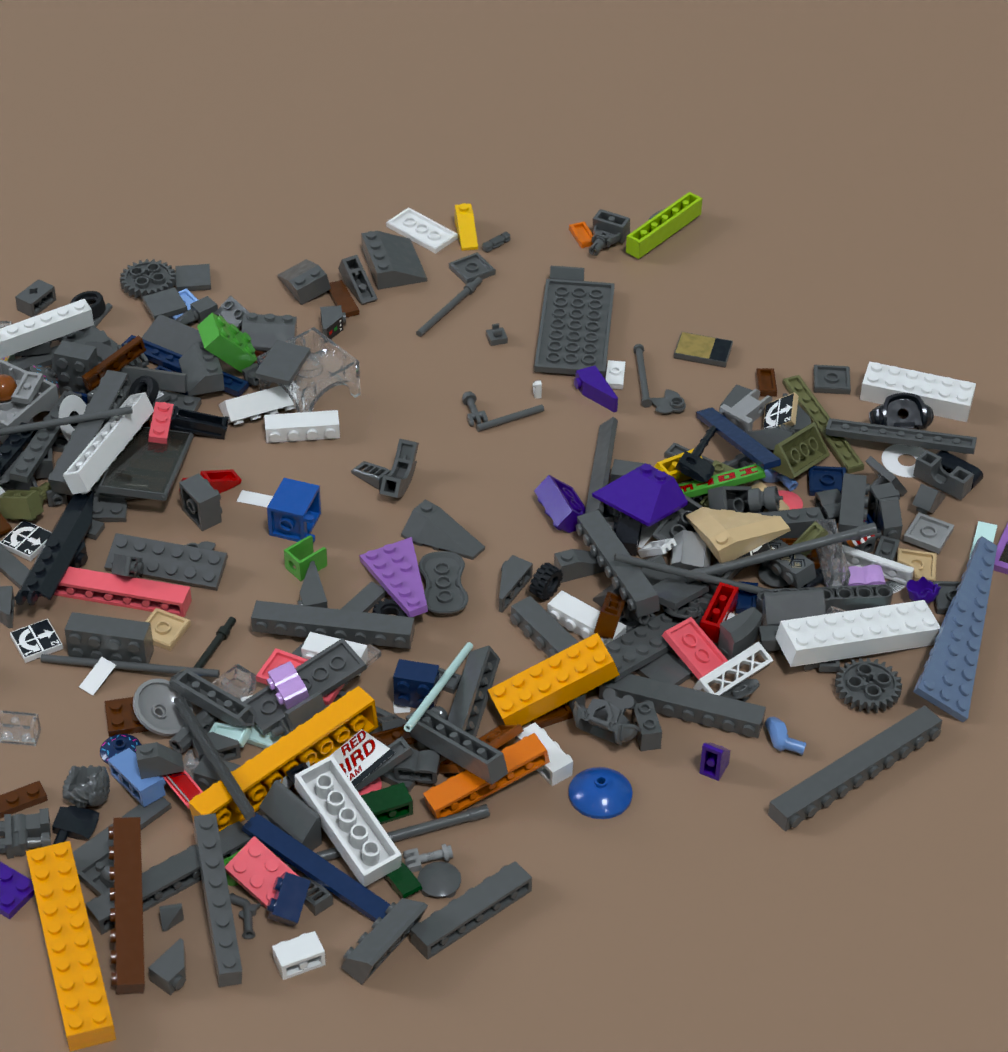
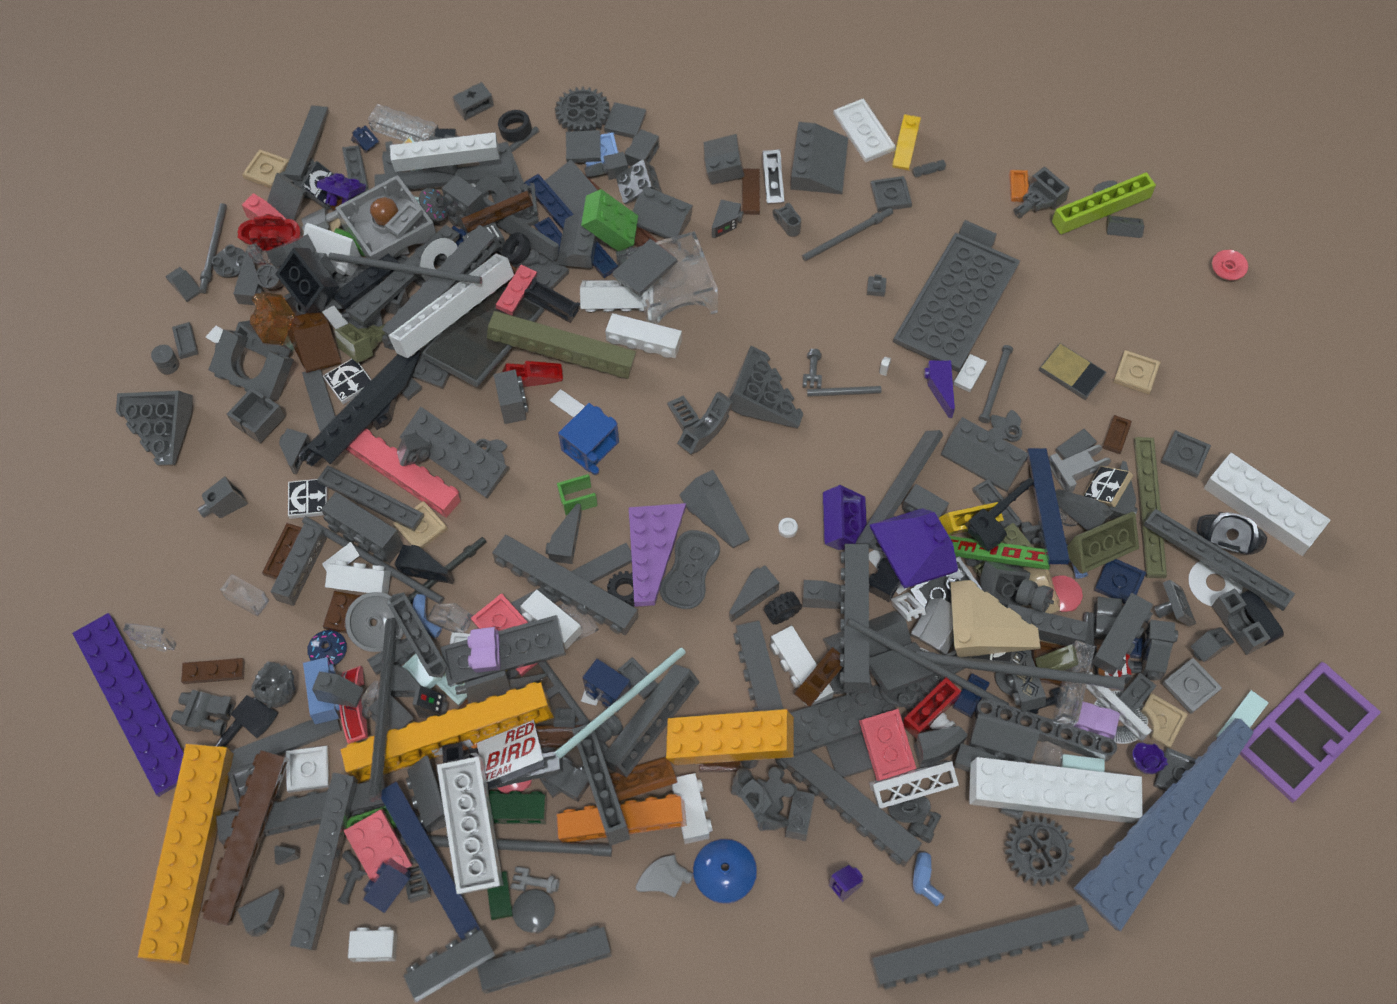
camera: 25 degrees right, 20 degrees up
(34, 688) = (281, 550): none -> reddish brown tile
(58, 690) = (298, 565): none -> dark grey brick
(60, 615) = (371, 498): none -> dark grey tile
(122, 680) = (357, 577): none -> white brick
(158, 845) = (308, 769): none -> white tile
(187, 651) = (417, 563): none -> black slope
(222, 288) = (643, 147): none -> dark grey brick
(228, 450) = (561, 344): none -> olive brick
(248, 746) = (429, 702): none -> slope
(389, 309) = (788, 219): none -> dark grey piece
(436, 438) = (760, 393): none -> dark grey slope
(515, 528) = (788, 527): none -> white tile
(547, 813) = (664, 876): none -> light grey arm
(661, 424) = (984, 454): none -> dark grey slope
(690, 239) = (1125, 226): none -> dark grey slope
(758, 335) = (1136, 372): none -> tan tile
(765, 701) = (922, 831): none -> dark grey piece
(794, 240) = (1230, 259): none -> coral dish

